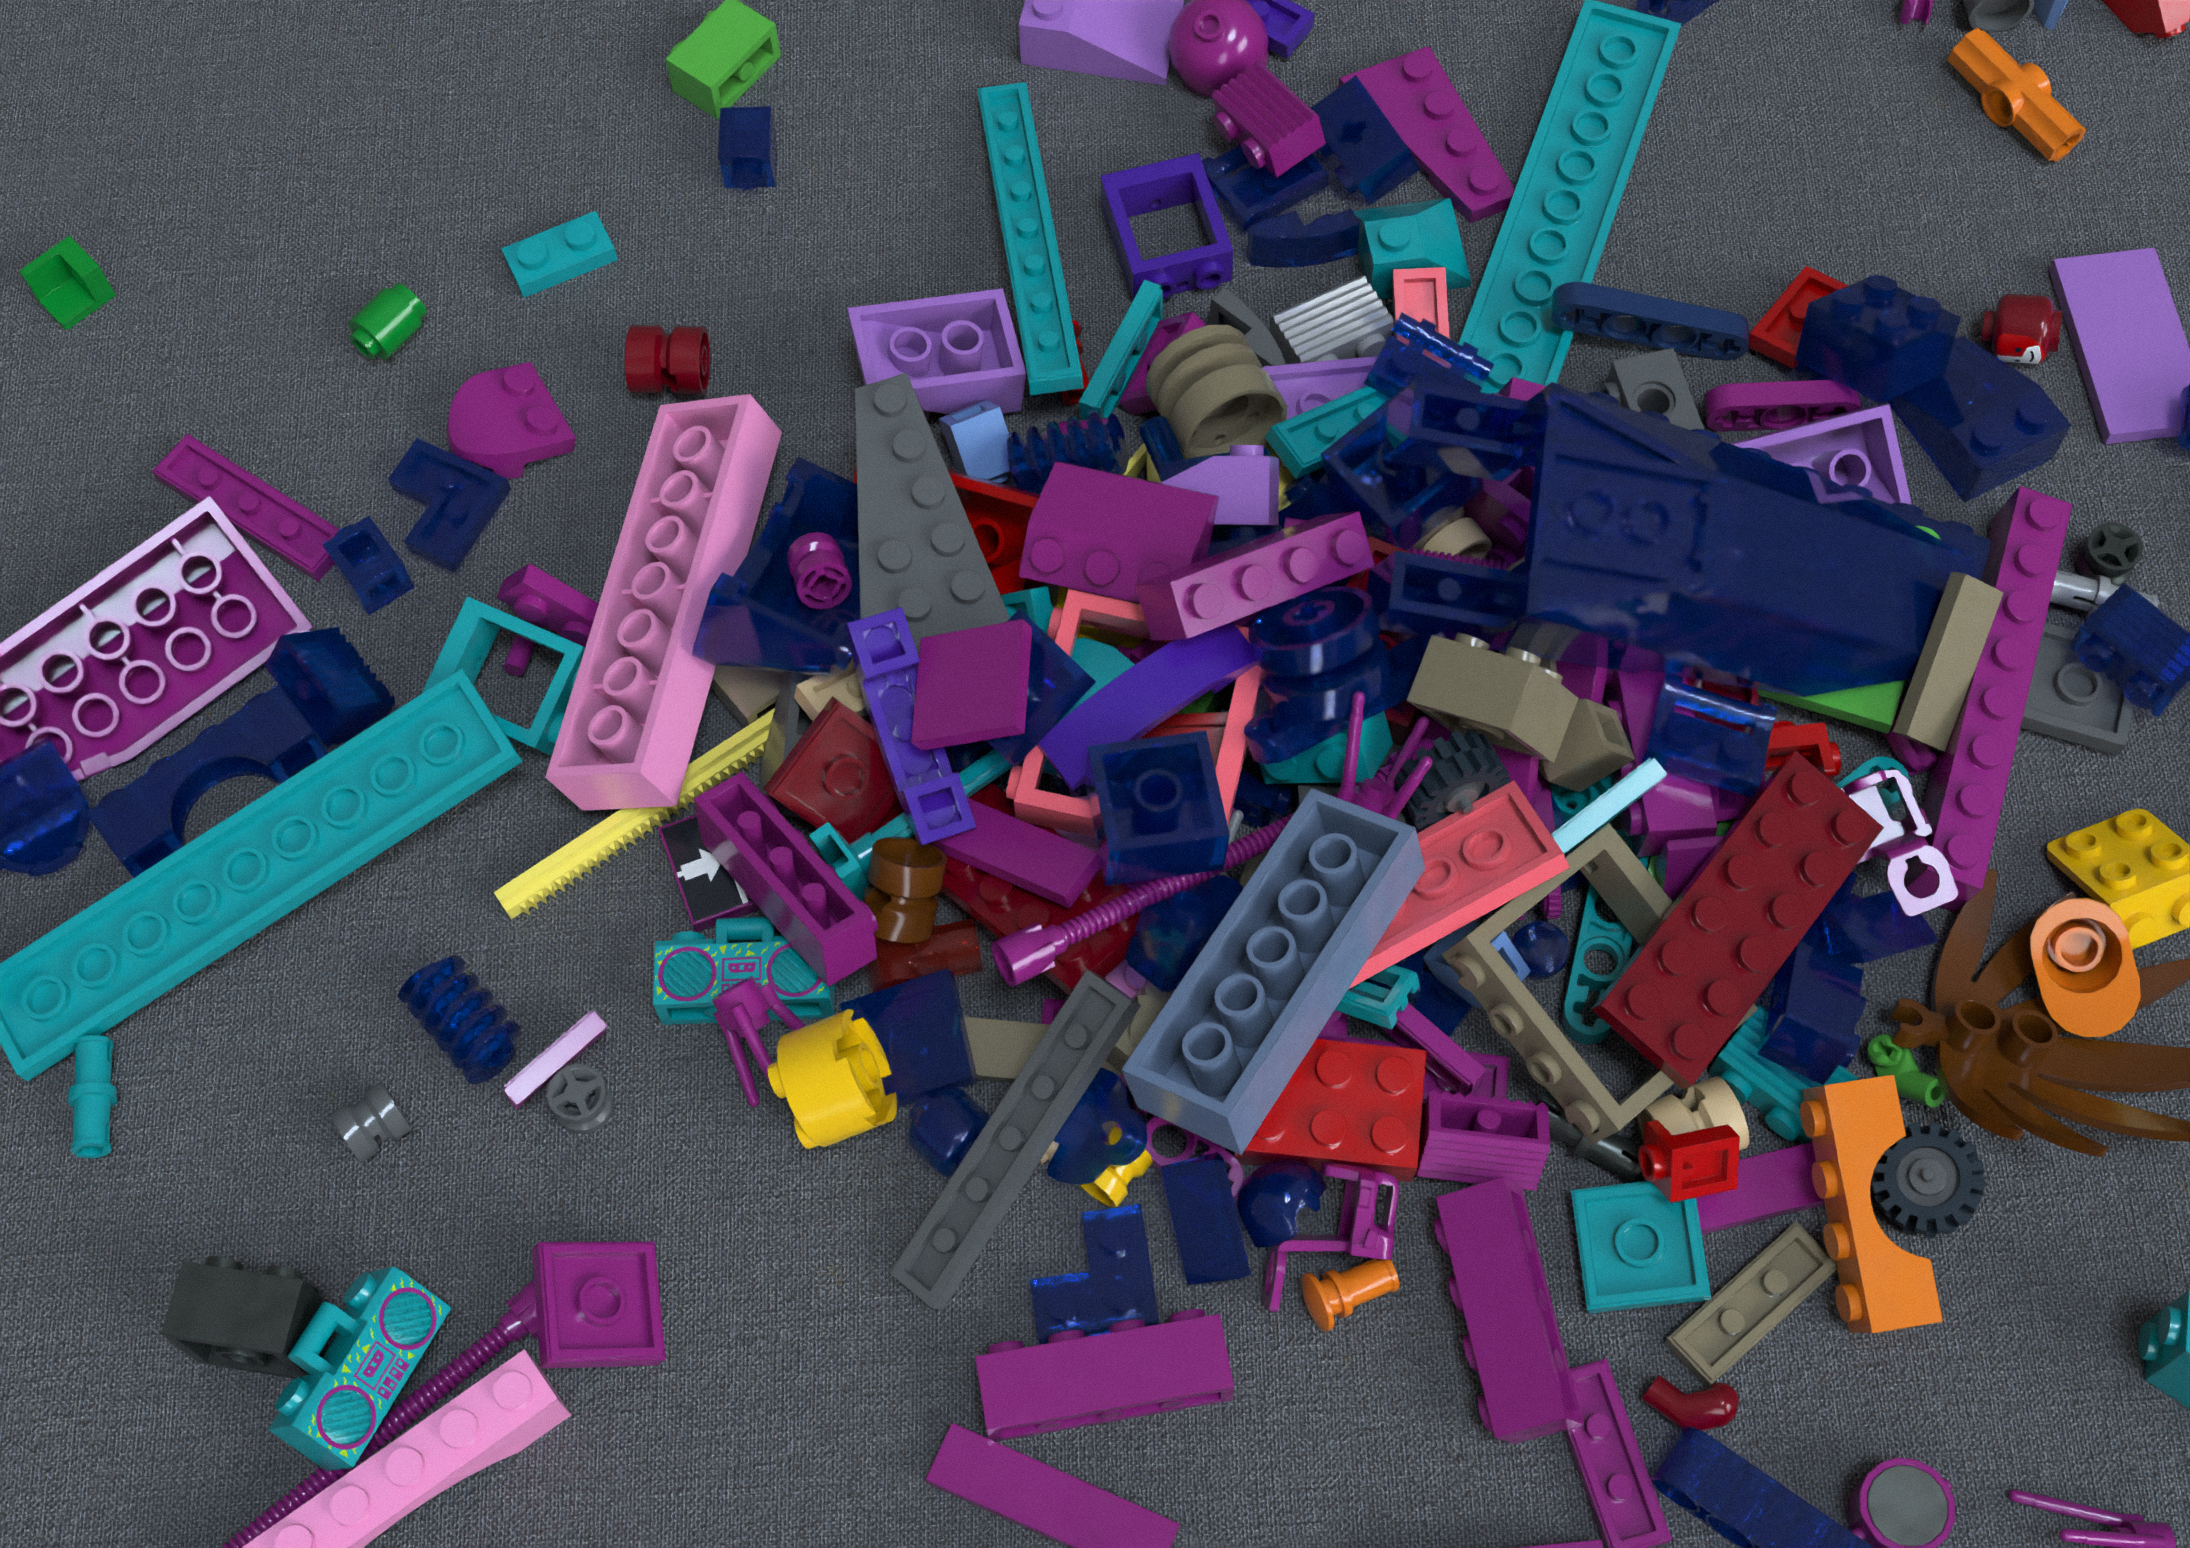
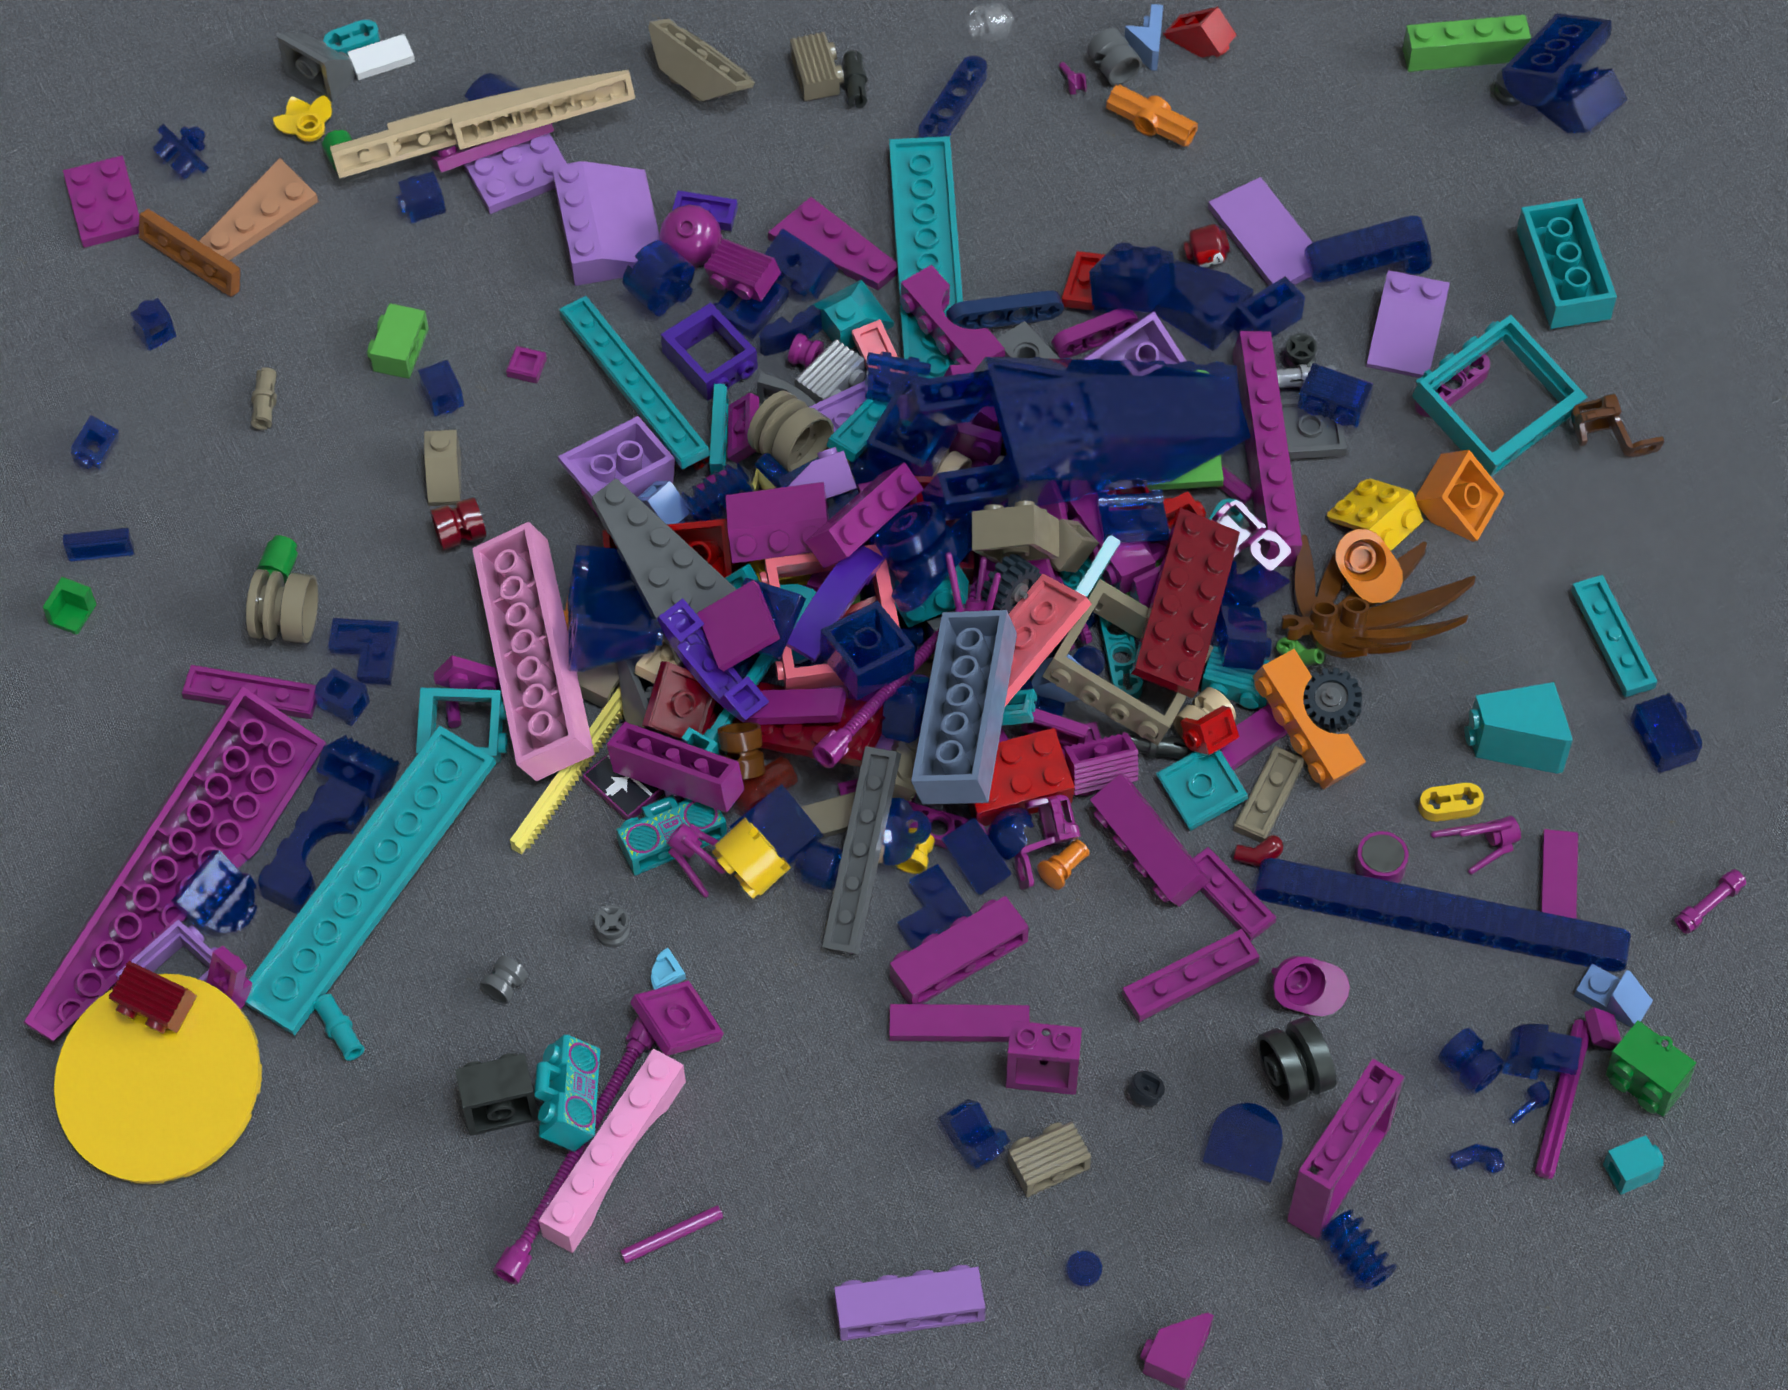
camera: 25 degrees left, 5 degrees down
(155, 207) = (98, 544): none -> clear blue tile
(222, 44) = (95, 433): none -> clear blue brick
(345, 393) = (279, 606): none -> dark tan wheel
(461, 1018) = (526, 909): clear blue piece -> none
(494, 76) = (263, 398): none -> dark tan pin
(507, 421) = (379, 590): magenta slope -> none
(553, 1059) = (588, 911): tile -> none
(559, 254) = (357, 487): teal plate -> none
(628, 1210) = (666, 970): none -> medium azure tile
(690, 265) = (442, 467): none -> dark tan slope
(819, 570) = (615, 602): magenta wheel -> none
(892, 155) = (526, 364): none -> magenta tile
(1139, 89) = (659, 277): none -> clear blue brick
(1308, 275) = (804, 351): none -> magenta wheel
(1534, 260) = (927, 297): none -> magenta arch
(1948, 661) = (1239, 436): dark tan tile -> none
(2071, 1435) = (1451, 802): none -> yellow beam
(2088, 466) = (1271, 309): none -> clear blue brick

